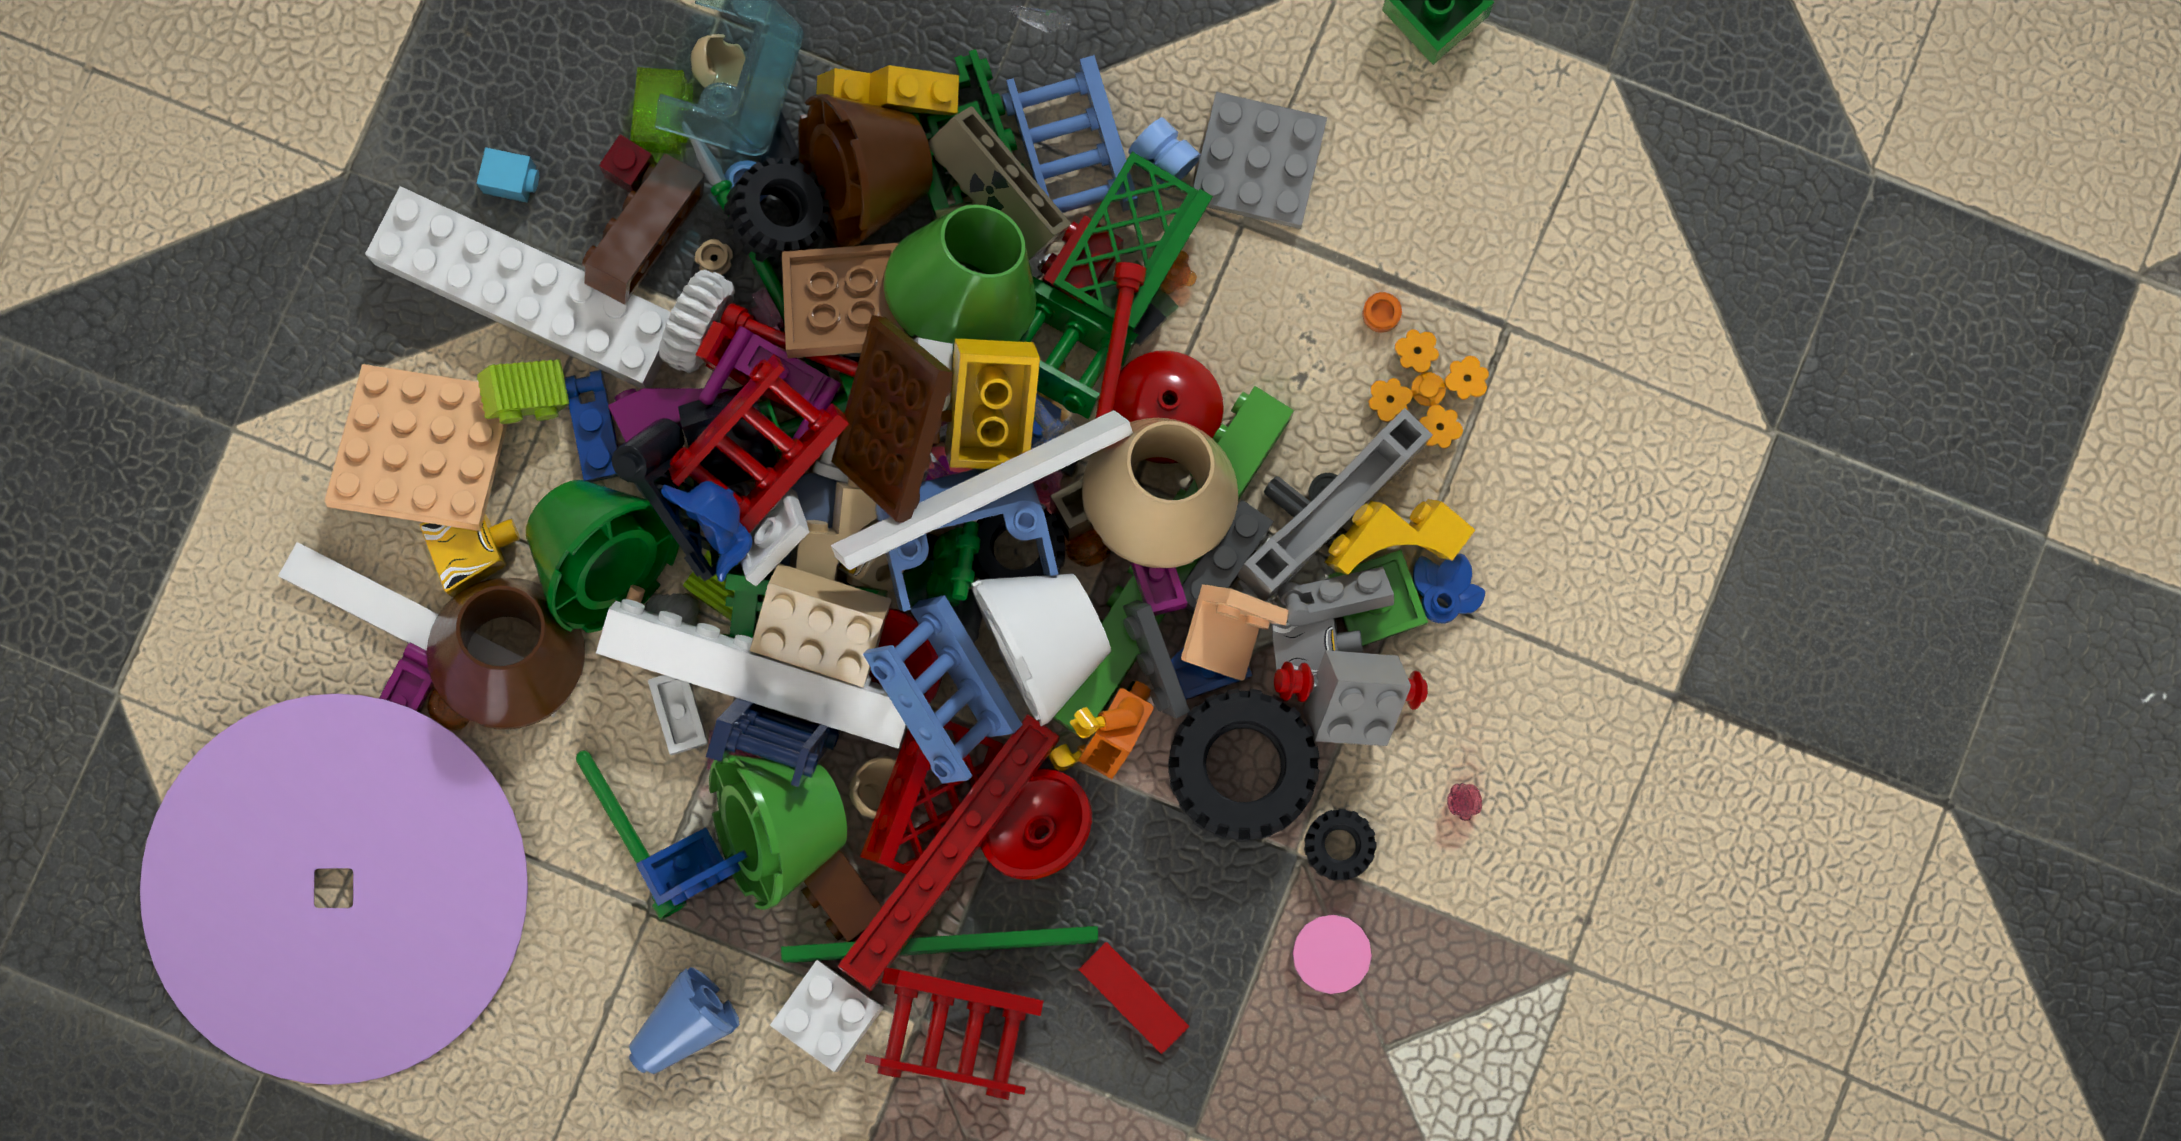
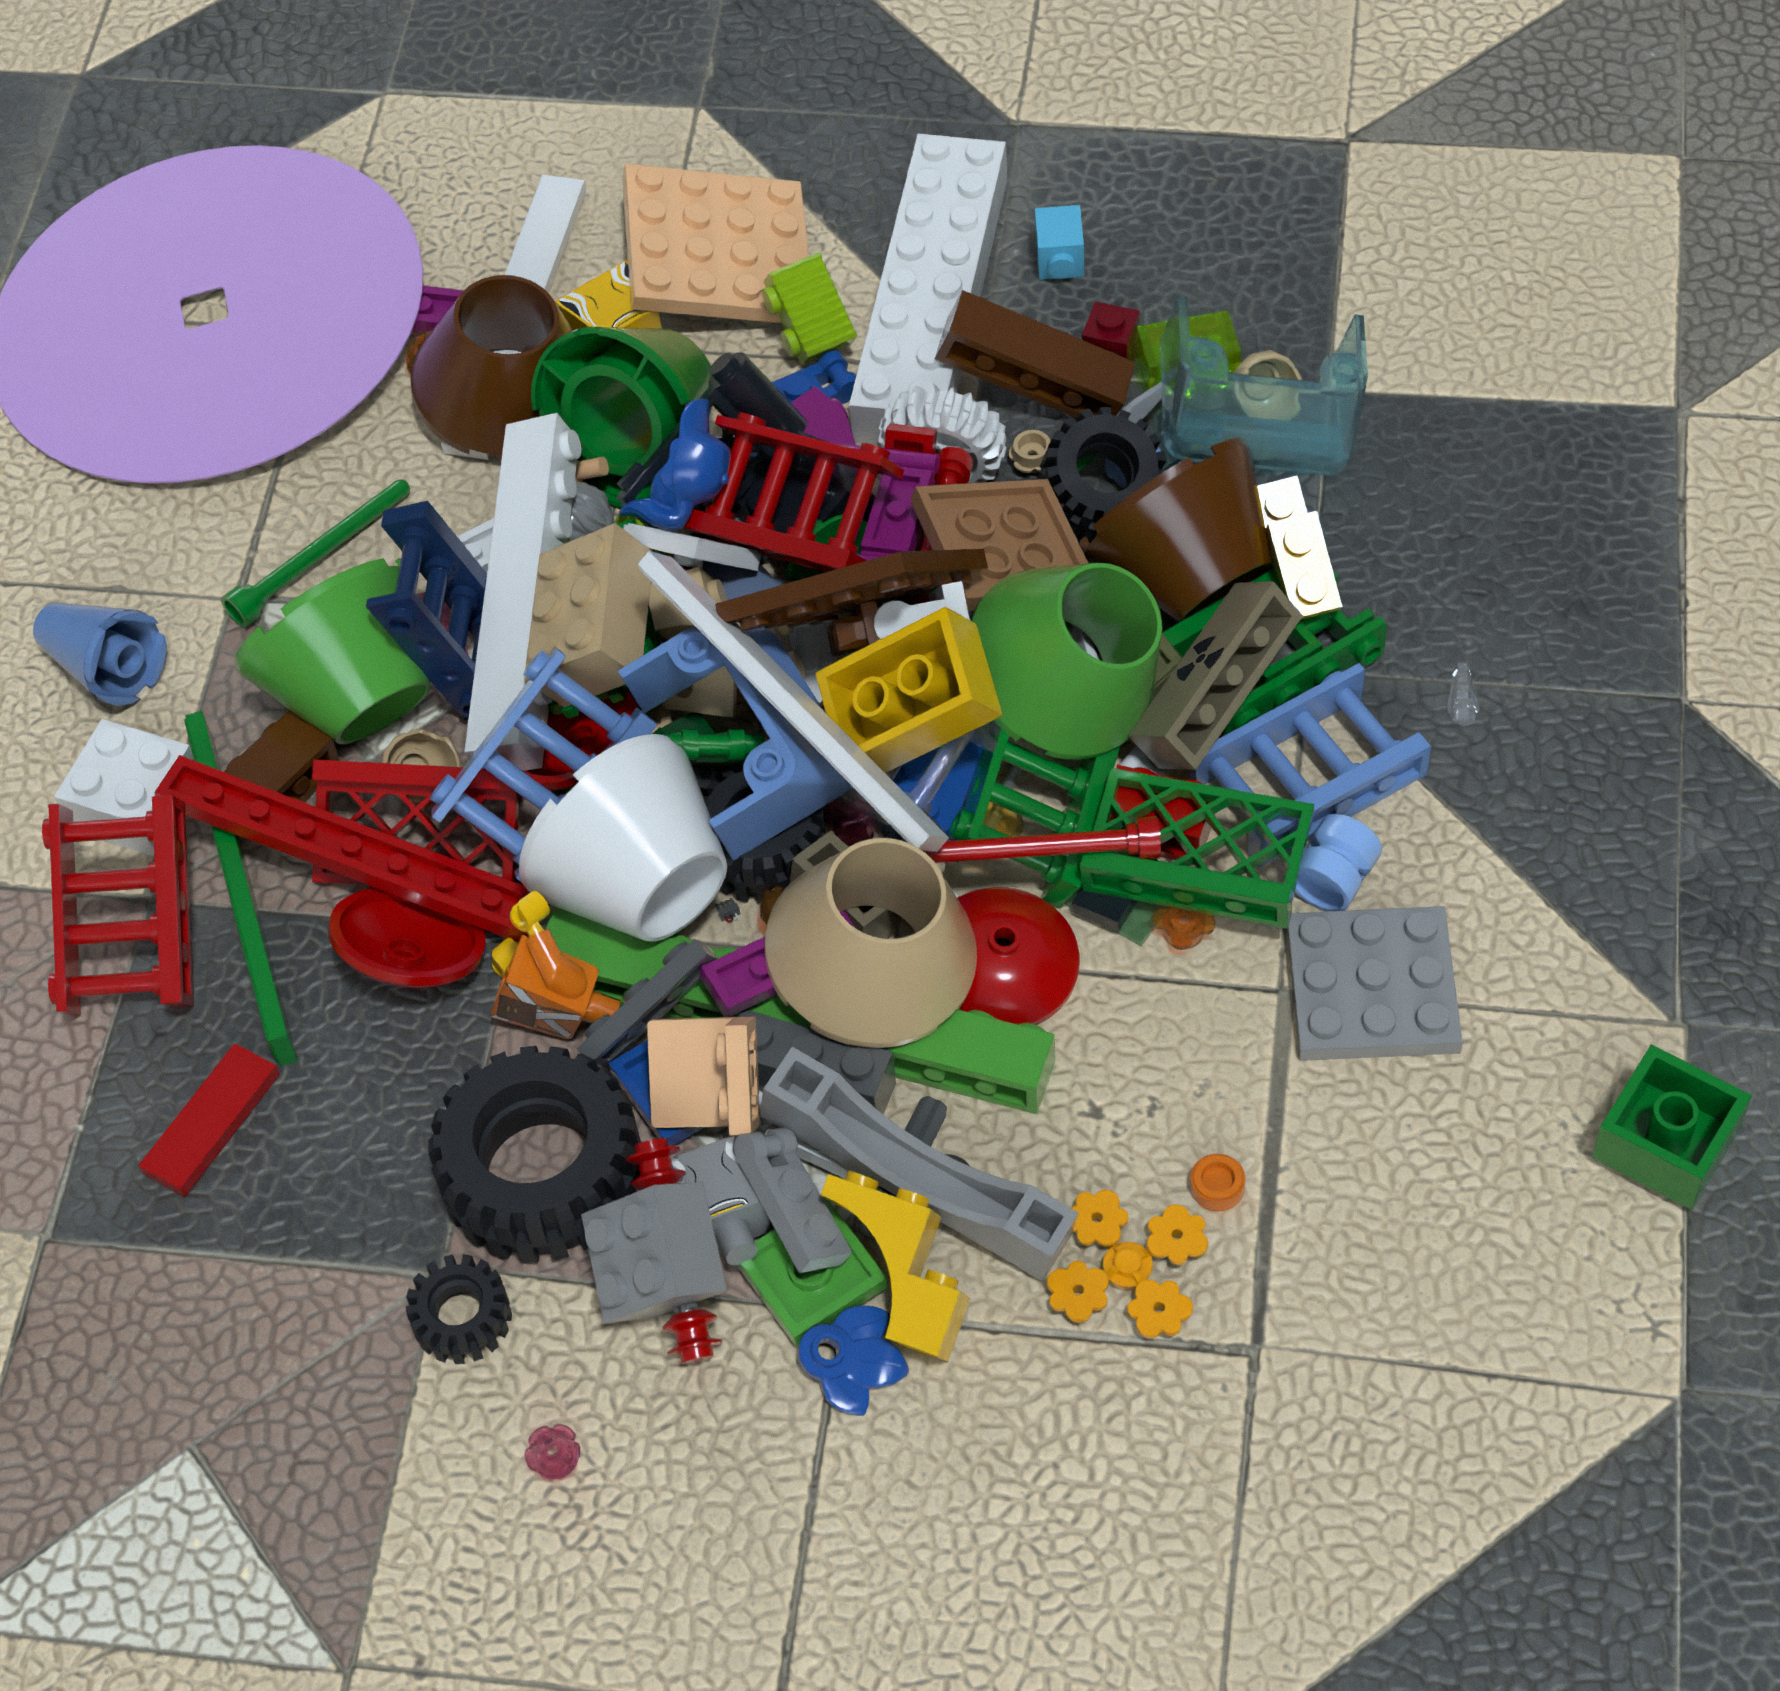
camera: 80 degrees right, 25 degrees down
(687, 868) = (267, 584): blue bracket -> none
(1332, 954) = (308, 1341): bright pink tile -> none

